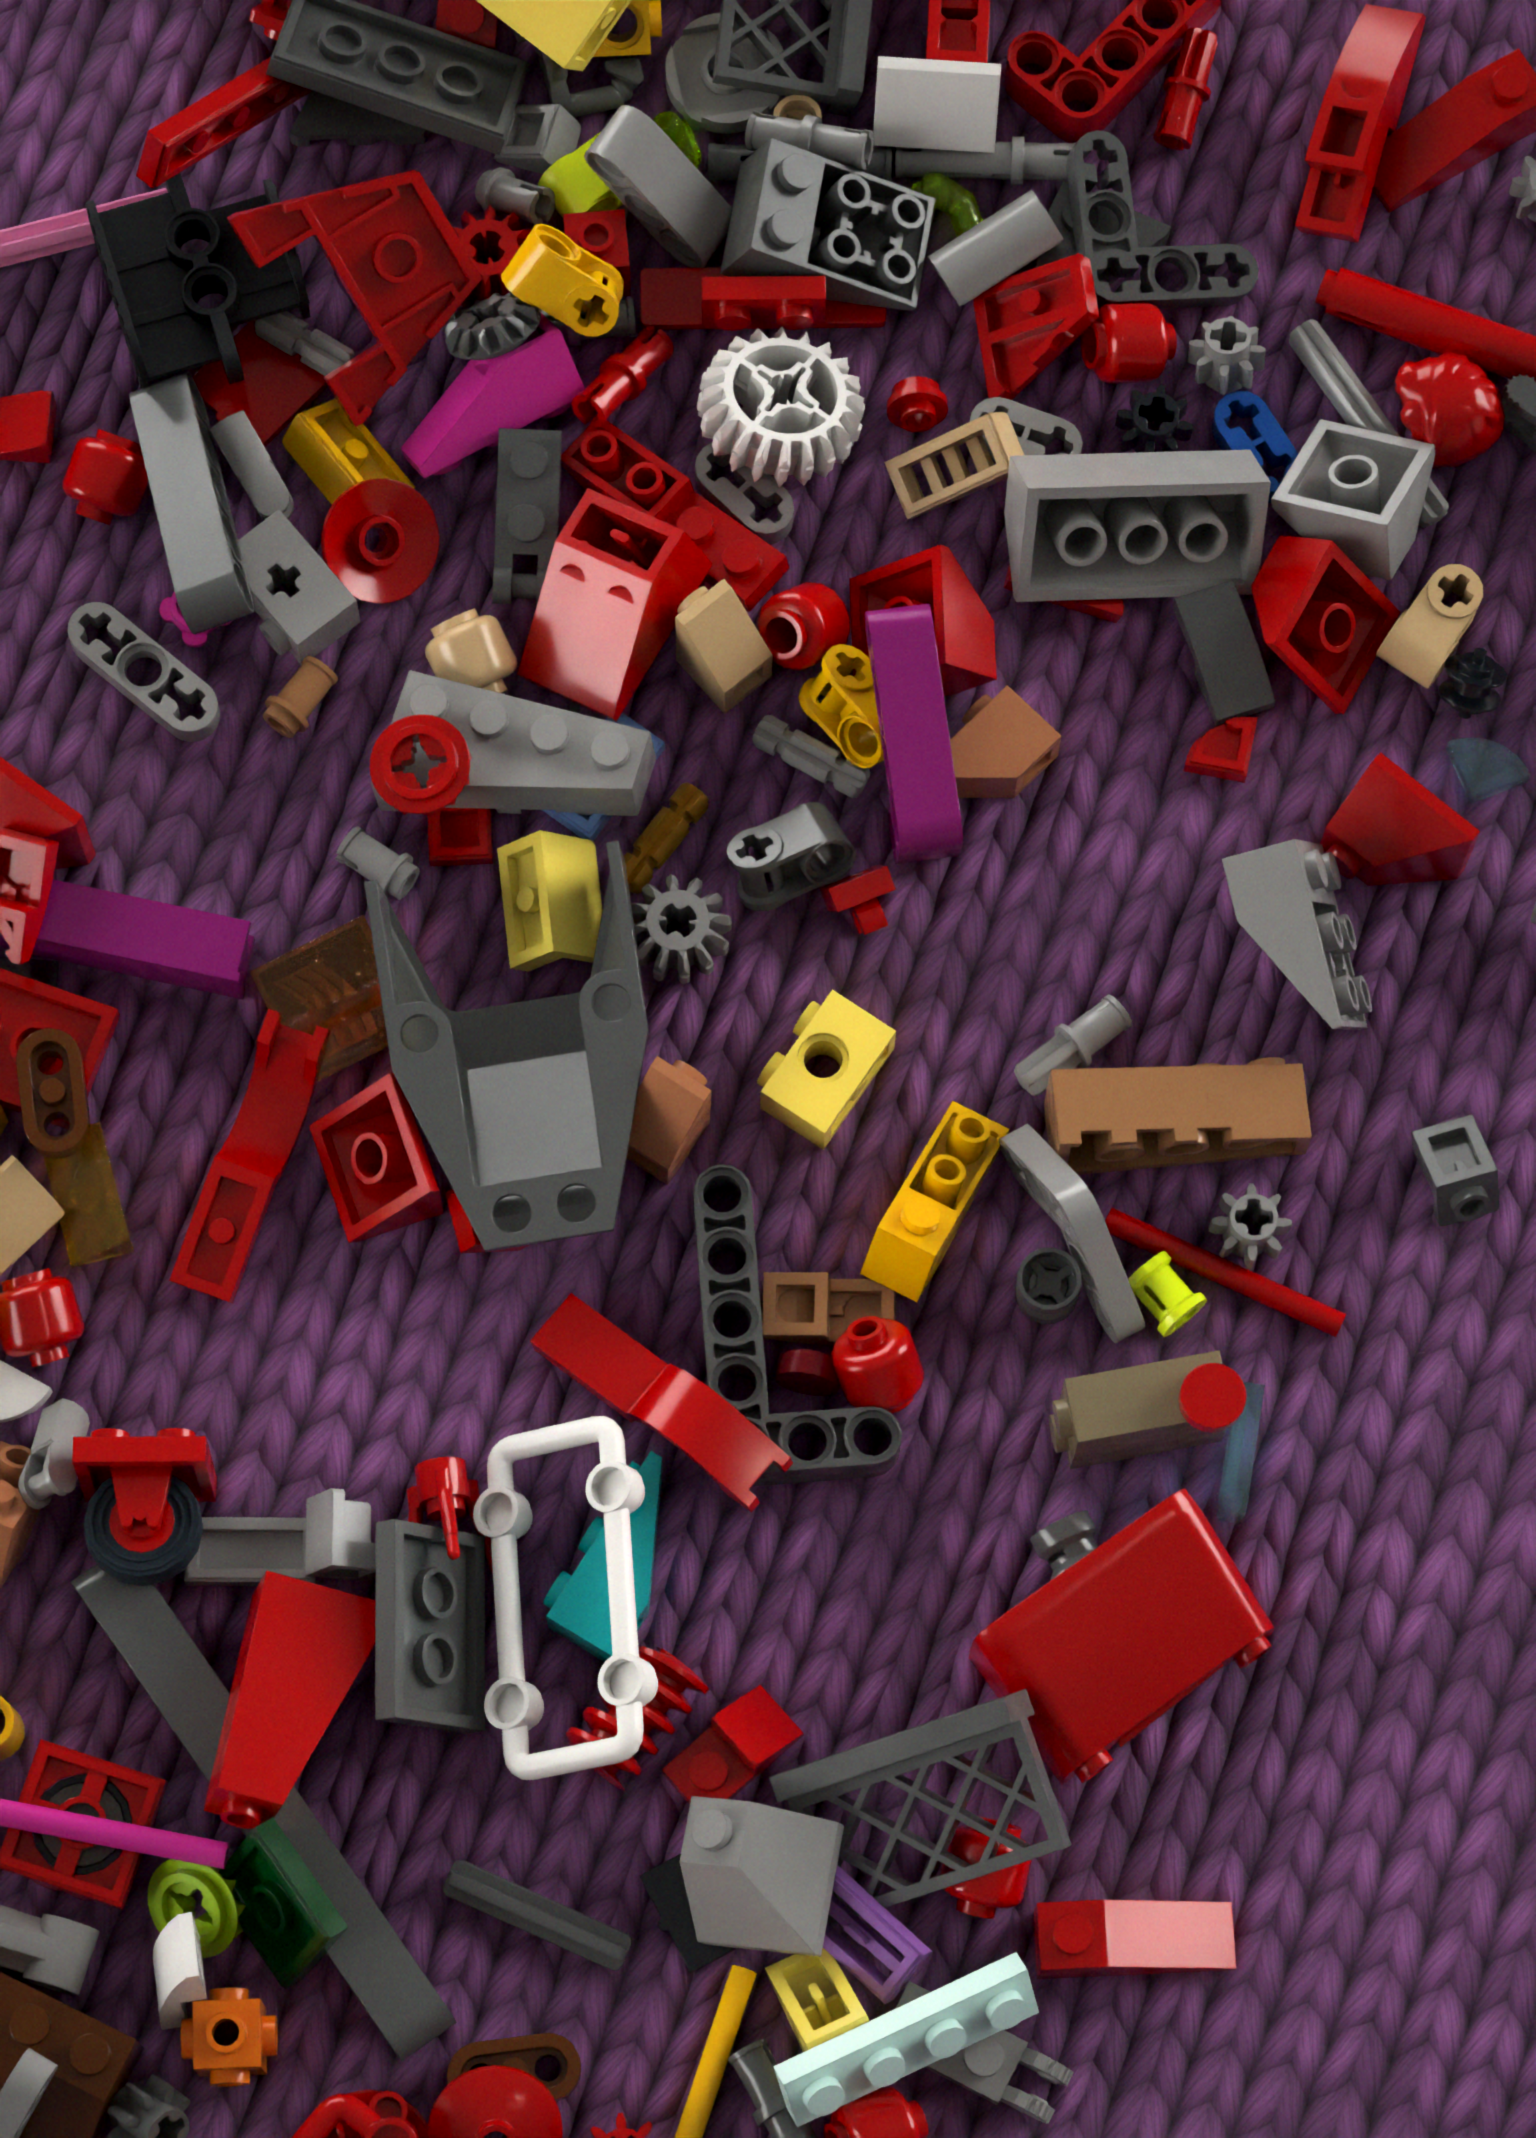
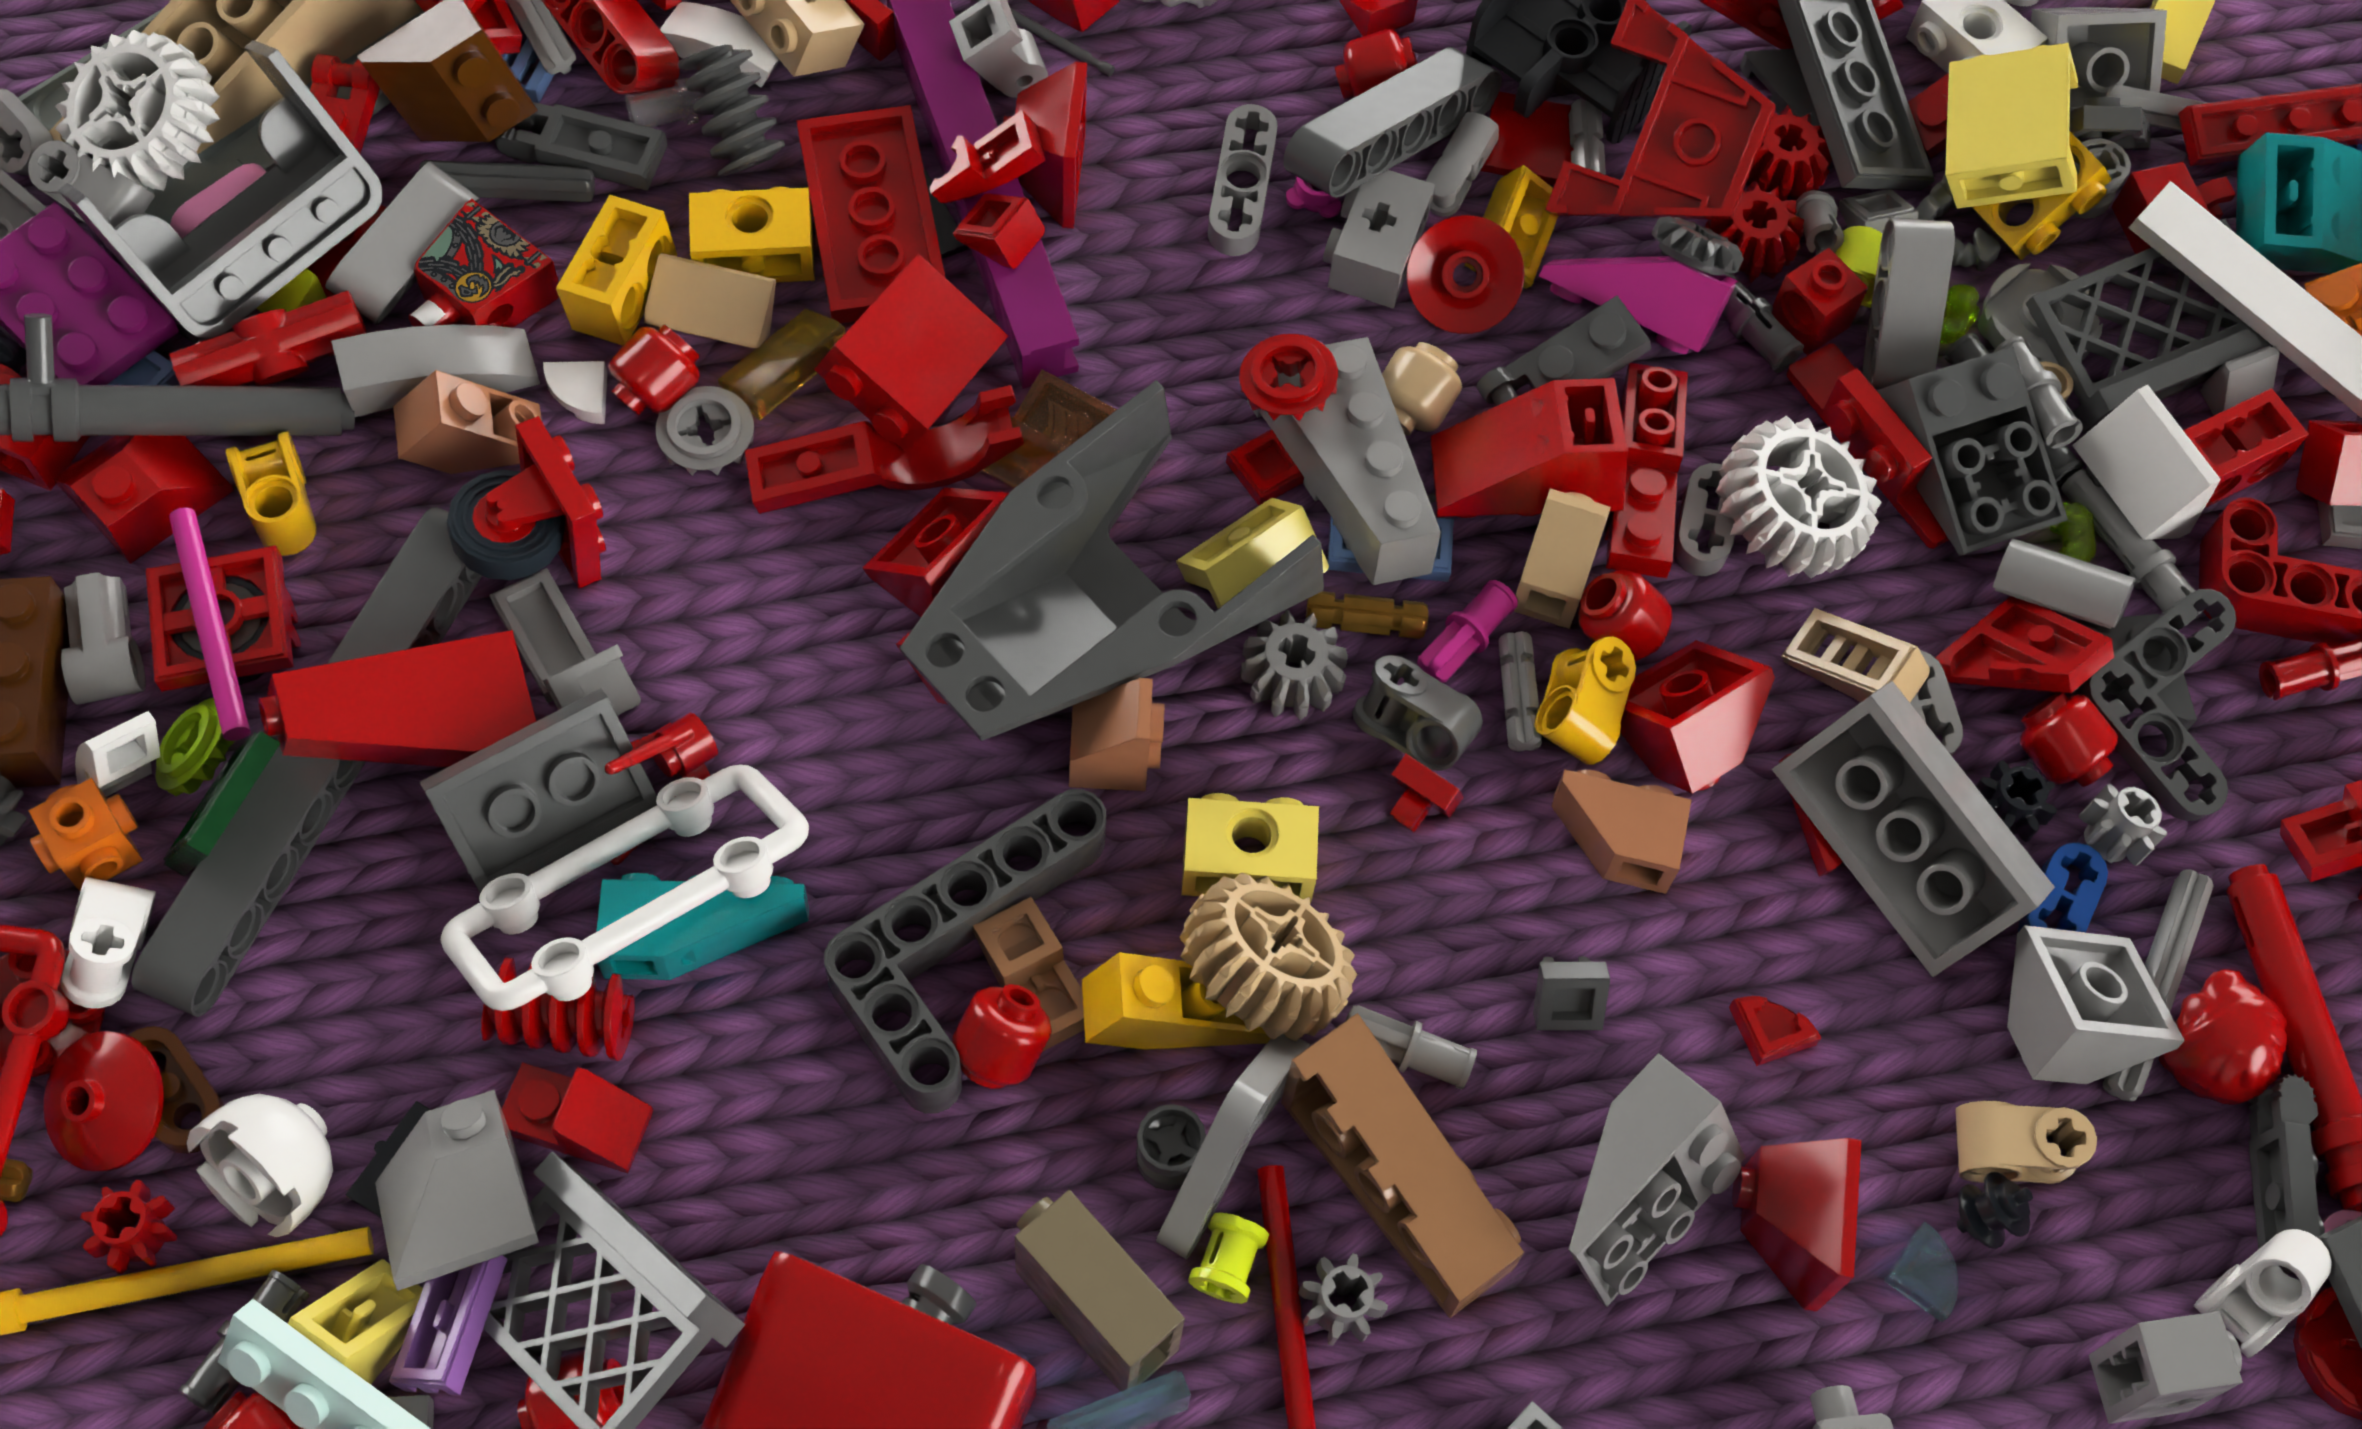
camera: 55 degrees right, 10 degrees down
(50, 1463) = (498, 433): light grey bar -> none
(55, 1095) = (837, 276): reddish brown plate -> none
(91, 924) = (1001, 228): none -> red slope
(107, 1280) = (726, 416): none -> light grey gear
(179, 1074) = (911, 353): none -> red panel
(299, 697) = (1297, 291): medium nougat pin -> none
(346, 2056) = (104, 941): none -> white piece
(377, 862) = (1197, 427): light grey pin -> none
(440, 160) = (1791, 156): none -> red gear
(537, 1915) = (332, 1030): dark grey axle -> none
(563, 279) = (1771, 267): yellow piece -> none
(622, 376) = (1732, 371): red pin -> none
(634, 2015) = (265, 1159): none -> white cylinder
(660, 1397) = (854, 870): red piece -> none
(731, 765) = (1468, 631): none -> dark pink axle
(807, 1372) = (961, 980): dark red tile -> none
(914, 734) = (1583, 739): magenta beam -> none
(916, 404) = (1883, 604): red plate -> none
(941, 1110) = (1268, 956): none -> tan gear
(1106, 889) = (1571, 995): none -> dark grey tile
(1212, 1397) = (1130, 1334): red tile -> none
(1224, 652) = (1859, 975): dark grey slope -> none
(1321, 616) = (1951, 1037): red slope -> none

